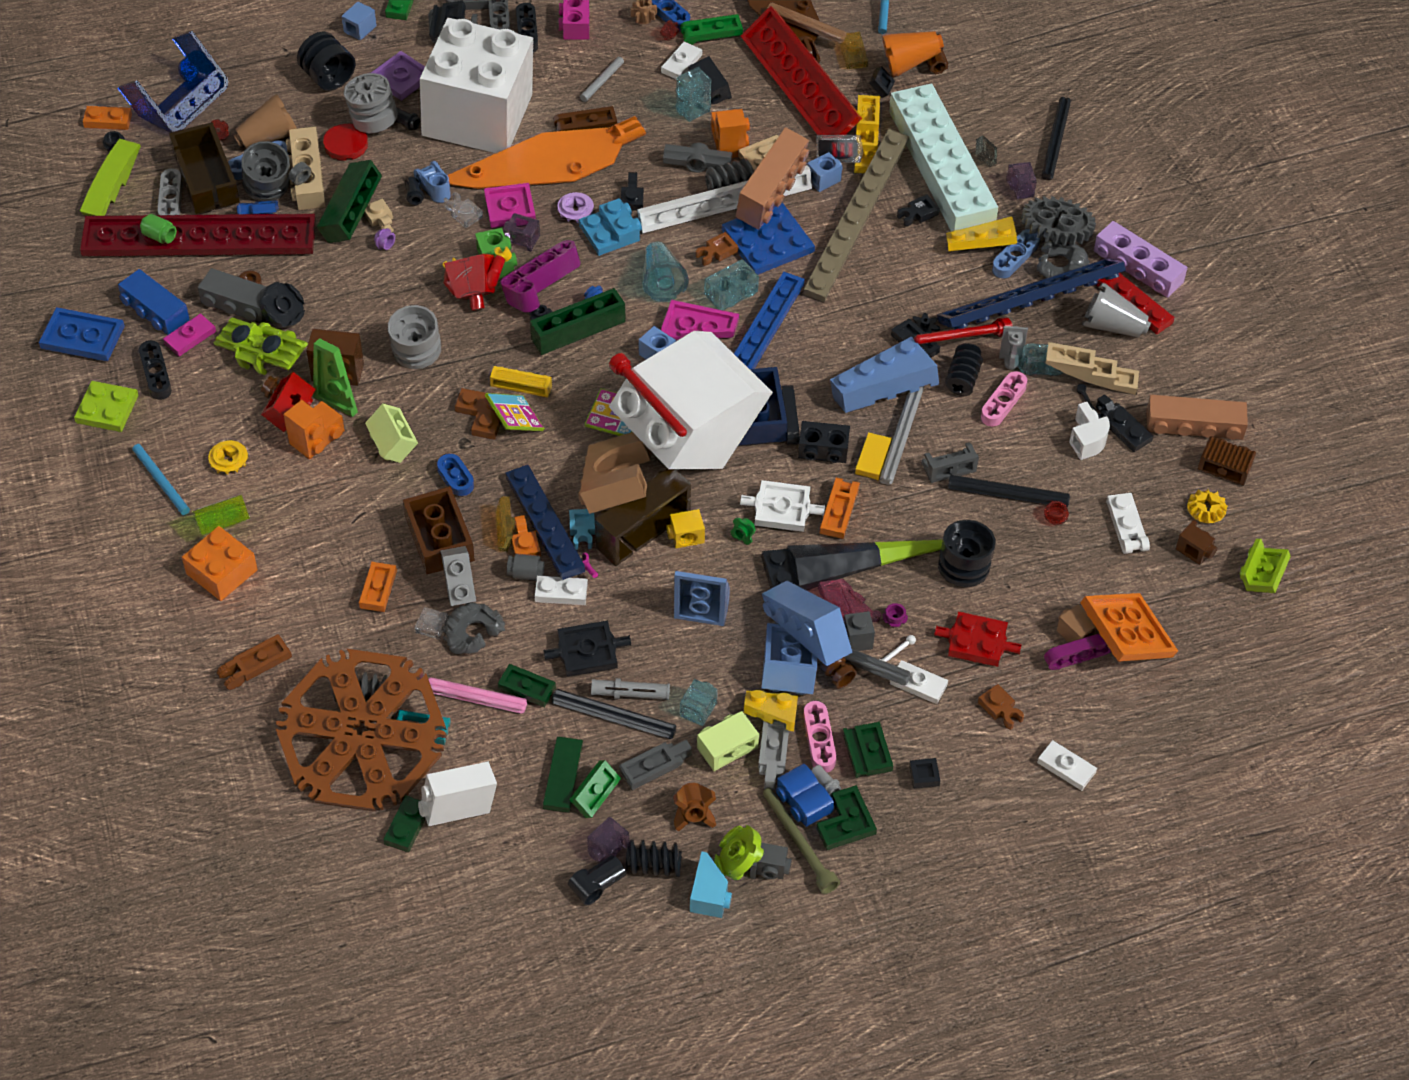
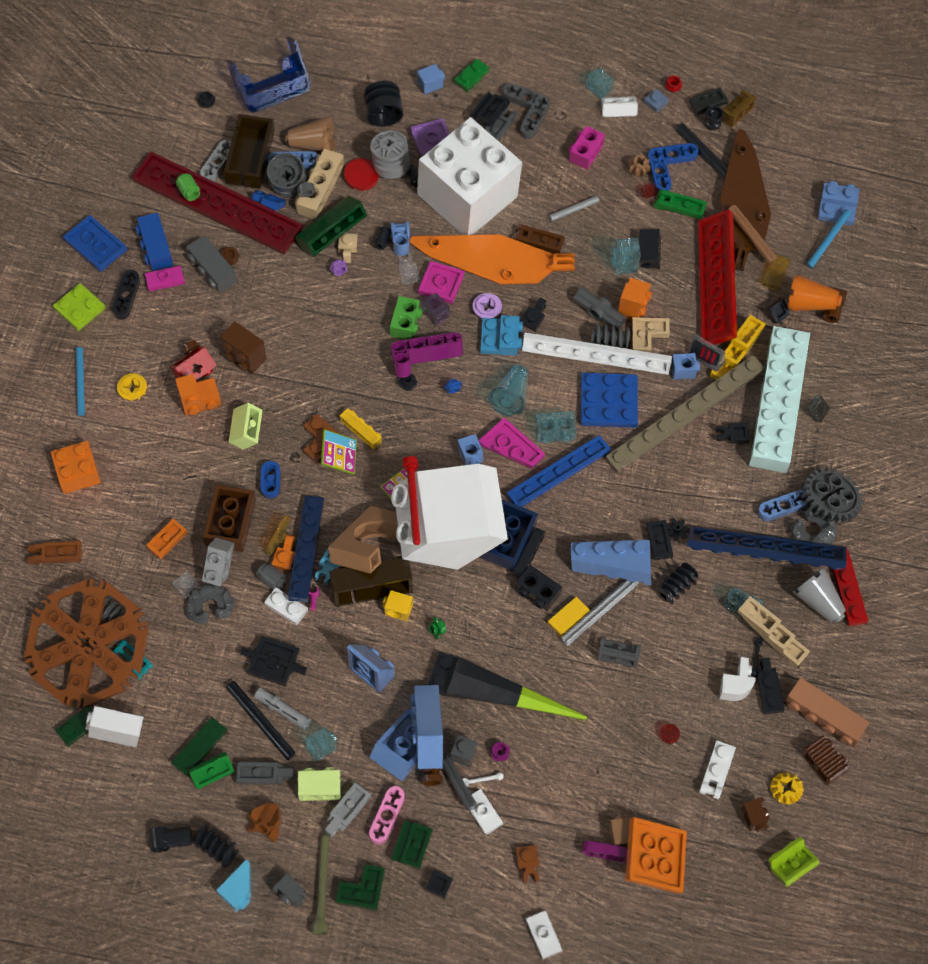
camera: 30 degrees right, 10 degrees up
(107, 117) = (214, 77): orange plate -> none
(110, 177) = (184, 128): lime slope -> none
(221, 514) = (97, 431): clear neon green brick -> none
(223, 134) = (280, 128): clear red plate -> none
(260, 344) = (196, 315): lime piece -> none
(282, 305) = (235, 287): black tile -> none
(331, 378) = (228, 365): bright green wing -> none
(414, 337) = (306, 358): light grey wheel -> none
(475, 276) = (376, 330): red torso -> none
(478, 695) = (159, 635): bright pink axle -> none
(526, 685) = (216, 667): dark green plate -> none
(527, 21) = (546, 132): black beam -> none
(577, 321) = (426, 402): dark green brick -> none
(607, 840) = (193, 813): clear purple brick -> none
(680, 60) = (641, 220): white plate -> none
(717, 247) = (567, 391): dark orange plate -> none
(739, 851) = (271, 874): lime plate -> none
(772, 178) = (631, 358): nougat brick -> none
(772, 706) = (367, 776): yellow wing -> none
(782, 505) = (477, 622): white plate -> none
(805, 795) = (345, 855): blue brick -> none
(831, 785) = (367, 854): light grey pin -> none
(839, 508) = (516, 646): orange plate -> none
(842, 595) = (470, 723): clear pink wing -> none
(966, 553) = (578, 722): black wheel -> none
(978, 639) = (546, 802): red plate -> none
(984, 235) = (769, 479): yellow wing -> none
(995, 328) = (729, 561): red piece -> none
(1004, 408) = (699, 612): bright pink beam -> none
(1007, 490) = (647, 697): black axle -> none
(1012, 345) = (725, 581): light grey hinge -> none
(1021, 180) = (828, 446): clear purple brick -> none
(1056, 138) = (881, 422): black axle -> none
(1141, 259) = (868, 531): lavender brick -> none

